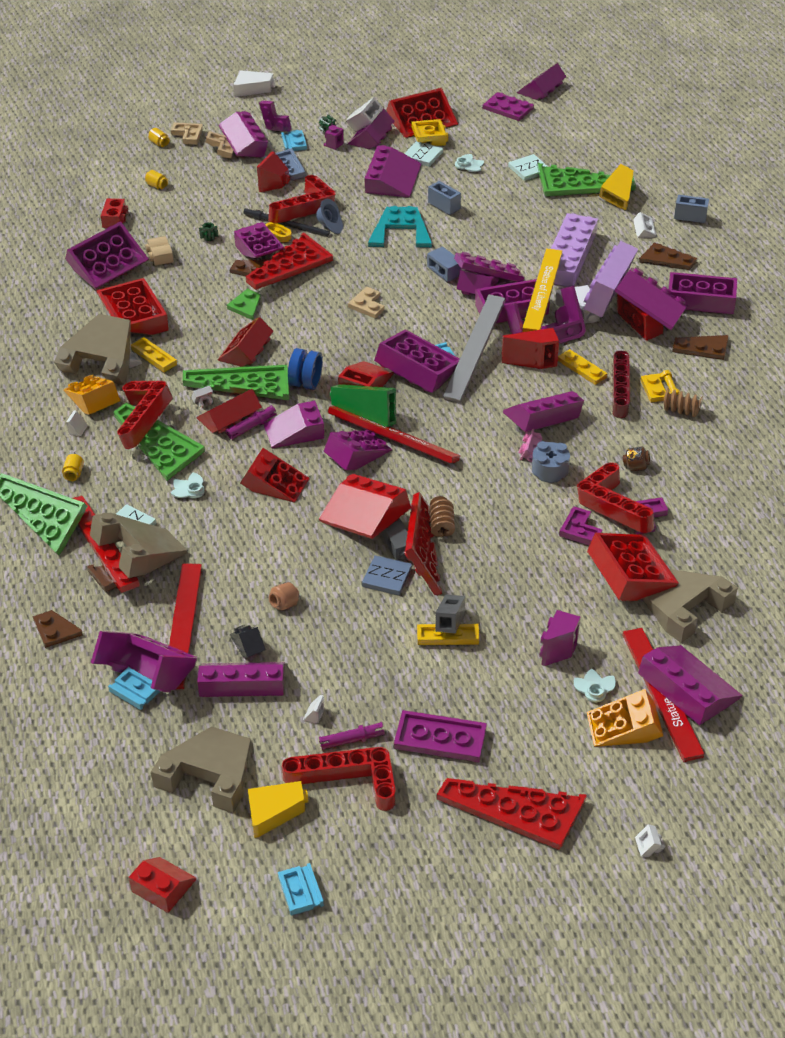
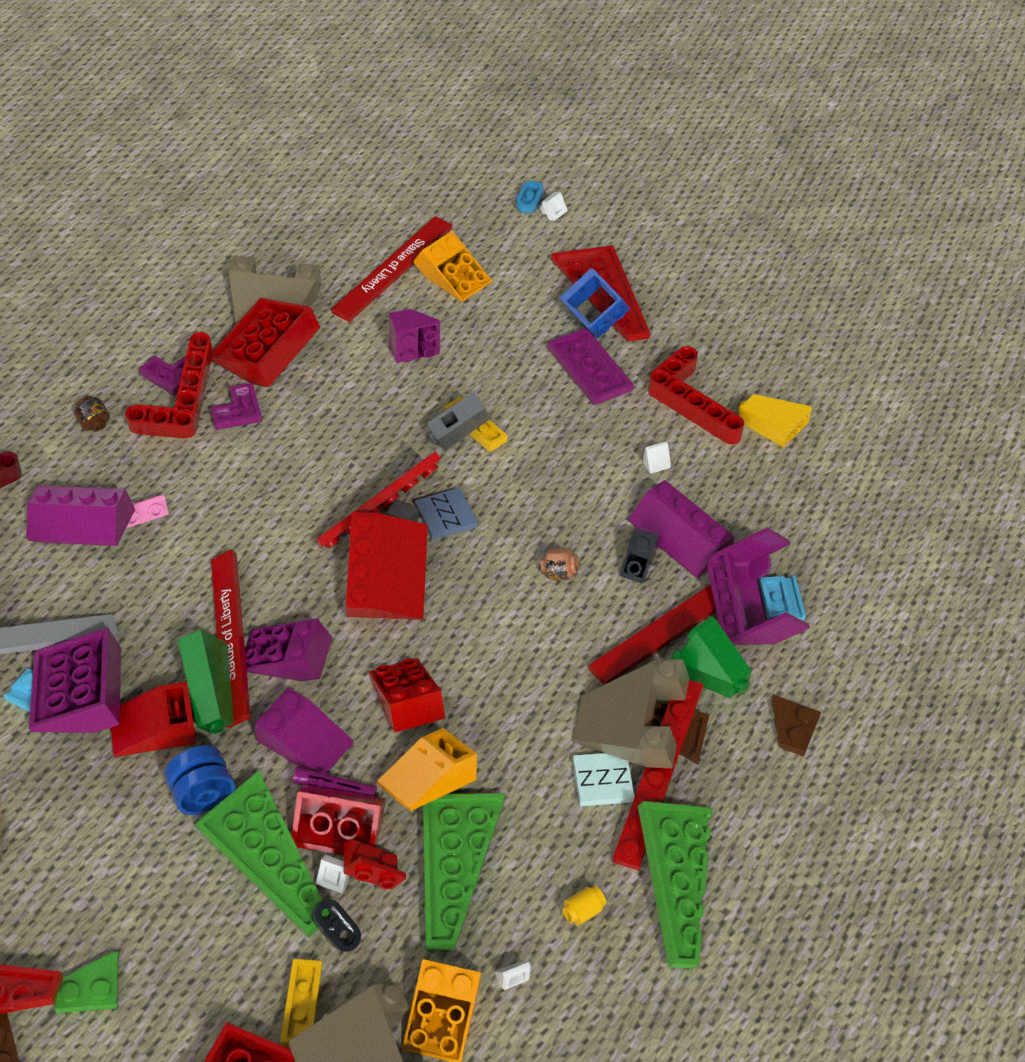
camera: 135 degrees left, 5 degrees up
(131, 613) = (714, 660): none -> green slope
(151, 401) = (429, 890): red beam -> none
(160, 882) = (914, 438): red slope -> none
(176, 375) = (335, 924): none -> black plate
(186, 403) = (371, 865): none -> red bracket
(189, 488) = (496, 771): light aqua plate -> none
(209, 450) = (430, 770): none -> light orange slope
(209, 756) = (784, 489): dark tan wedge -> none
(247, 343) = (190, 907): red slope -> none
(300, 889) = (817, 361): medium azure plate -> none
(353, 735) = (646, 415): magenta pin -> none
(442, 516) = (330, 507): medium nougat piece -> none
(494, 771) = (591, 282): none -> blue window
(550, 461) = (161, 471): sand blue brick -> none
(594, 684) = (432, 305): light aqua plate -> none
(680, 836) = (529, 196): none -> dark azure plate
(687, 682) = (370, 249): magenta slope -> none

